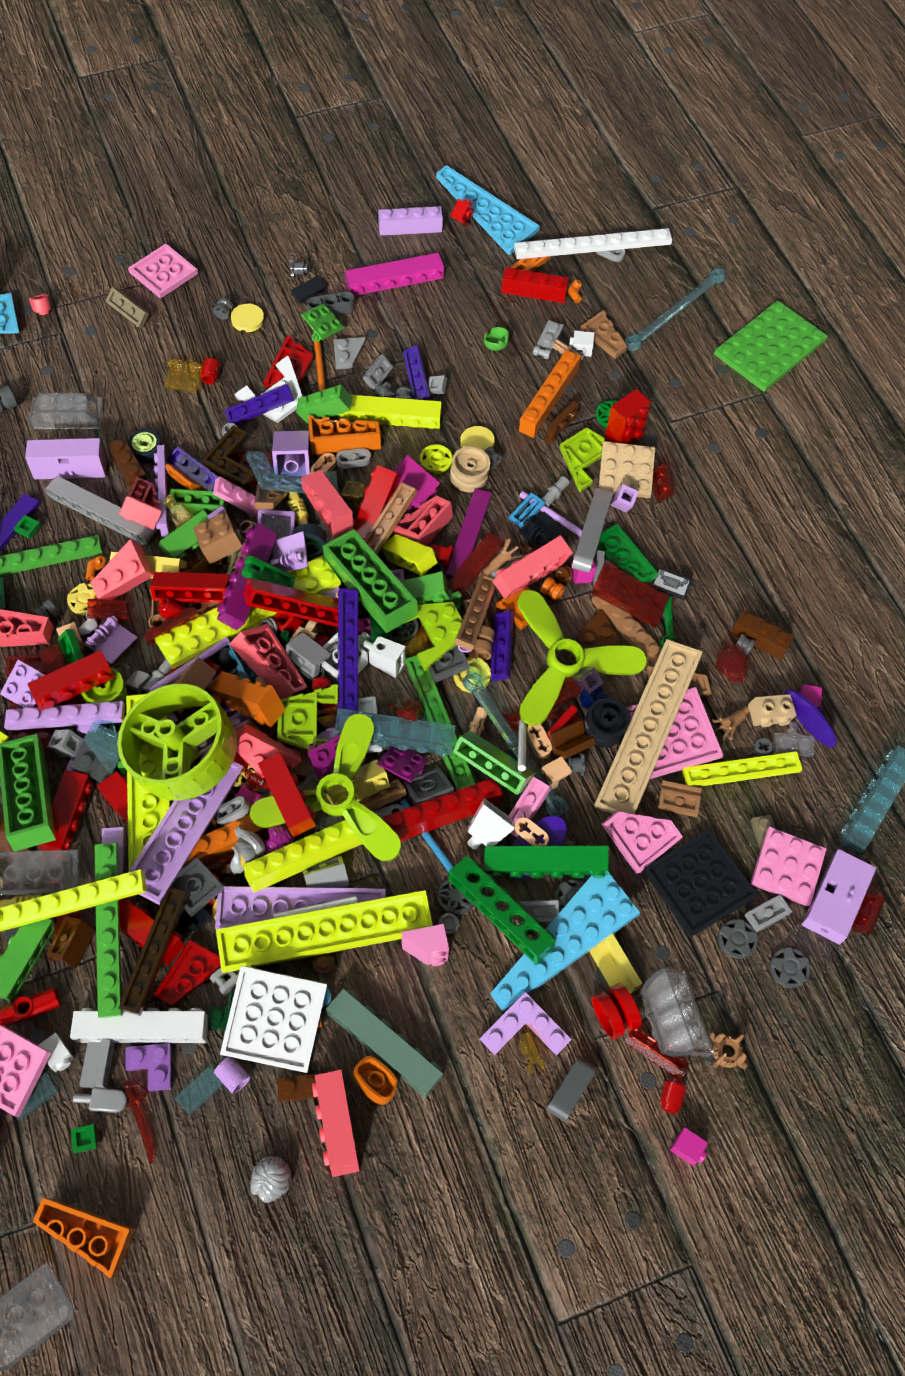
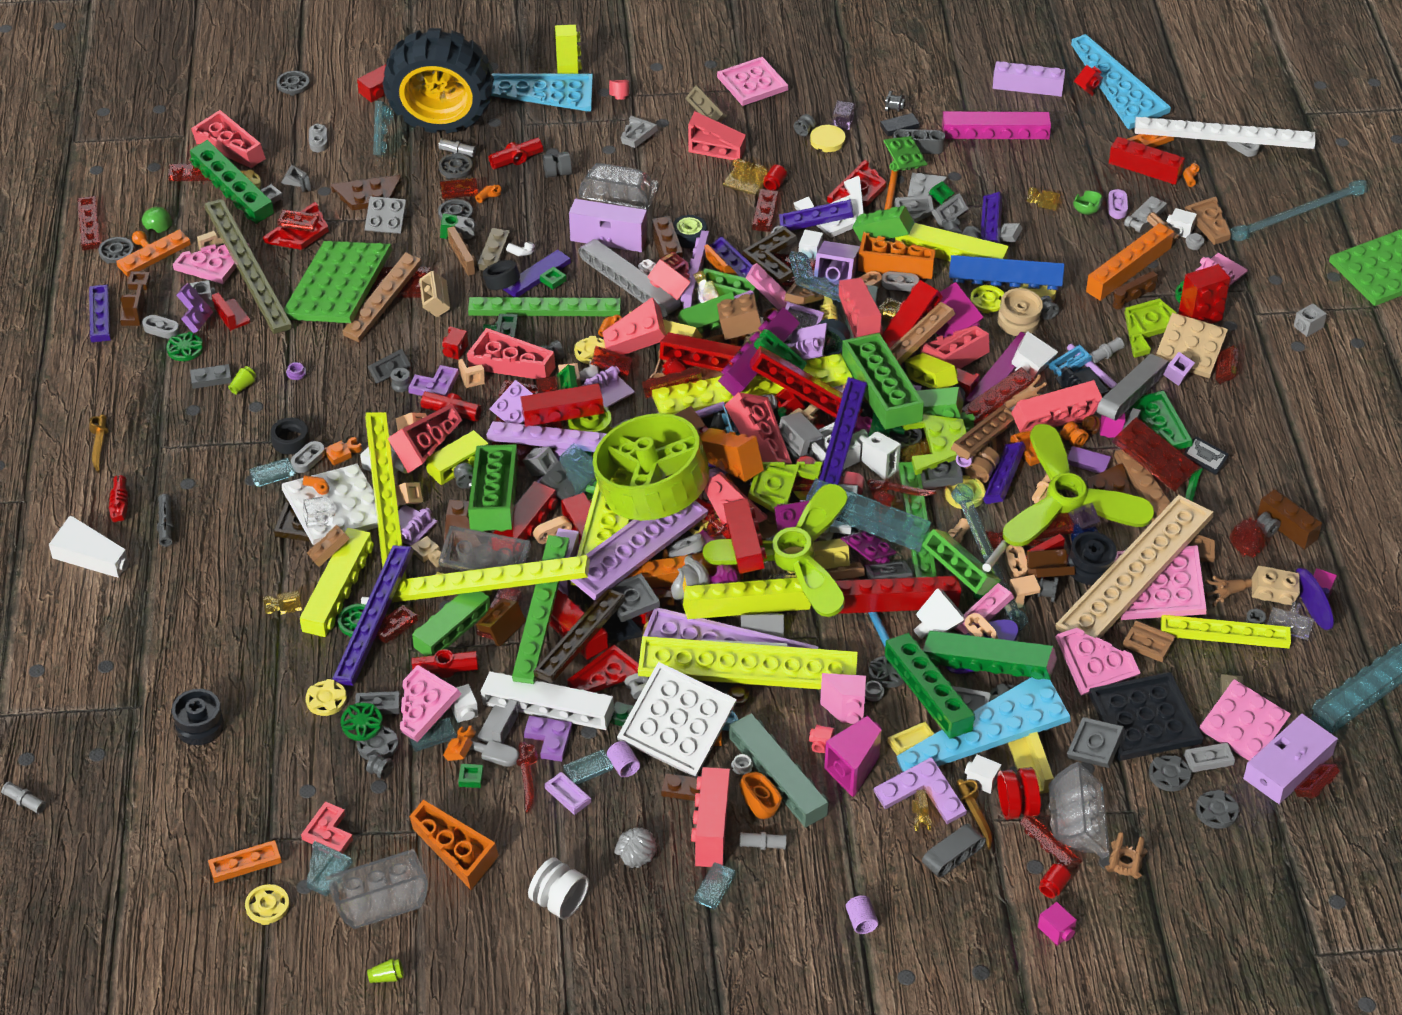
camera: 20 degrees right, 15 degrees down
(64, 1105) = (459, 746): none -> orange plate
(69, 347) = (637, 131): none -> light grey wing
(95, 818) = (550, 528): none -> light nougat beam
(115, 498) = (646, 266): none -> white plate
(144, 341) = (714, 138): none -> coral wedge
(186, 1128) = (567, 793): none -> lavender tile
(208, 1261) = (558, 888): none -> white wheel
(209, 407) = (765, 210): none -> clear red plate
(255, 290) = (843, 114): none -> clear purple brick
(261, 437) = (810, 243): none -> white brick
(345, 375) = (918, 207): none -> light grey wing
(347, 1039) = (742, 760): none -> white plate
(357, 1198) = (714, 885): none -> clear light blue tile
(365, 355) = (941, 192): none -> green plate
(369, 689) = (853, 478): none -> coral plate
(391, 1131) = (762, 840): none -> light grey pin
(400, 686) = (888, 485): none -> clear red sword
(416, 994) = (819, 737): none -> coral plate
(447, 428) = (1006, 271): none -> blue brick
(452, 1008) = (853, 754): none -> dark pink slope
(459, 342) = (1046, 199): none -> clear yellow plate
(493, 513) = (1033, 355): none -> white torso
(497, 967) = (910, 737): none -> light yellow tile
(508, 1193) = (862, 914): none -> lavender piece
(522, 334) = (1117, 204): none -> lavender plate
(541, 654) = (1041, 490): none -> light nougat axle
(568, 1021) = (969, 799): none -> pearl gold sword
(571, 612) = (1088, 460): none -> medium lavender tile
(574, 991) = (983, 772): none -> white brick
(597, 358) = (1194, 241): none -> light grey plate
(627, 381) = (1233, 269): none -> bright pink hinge
(667, 928) = (1096, 742): none -> dark grey plate
(718, 420) = (1310, 320): none -> light grey brick

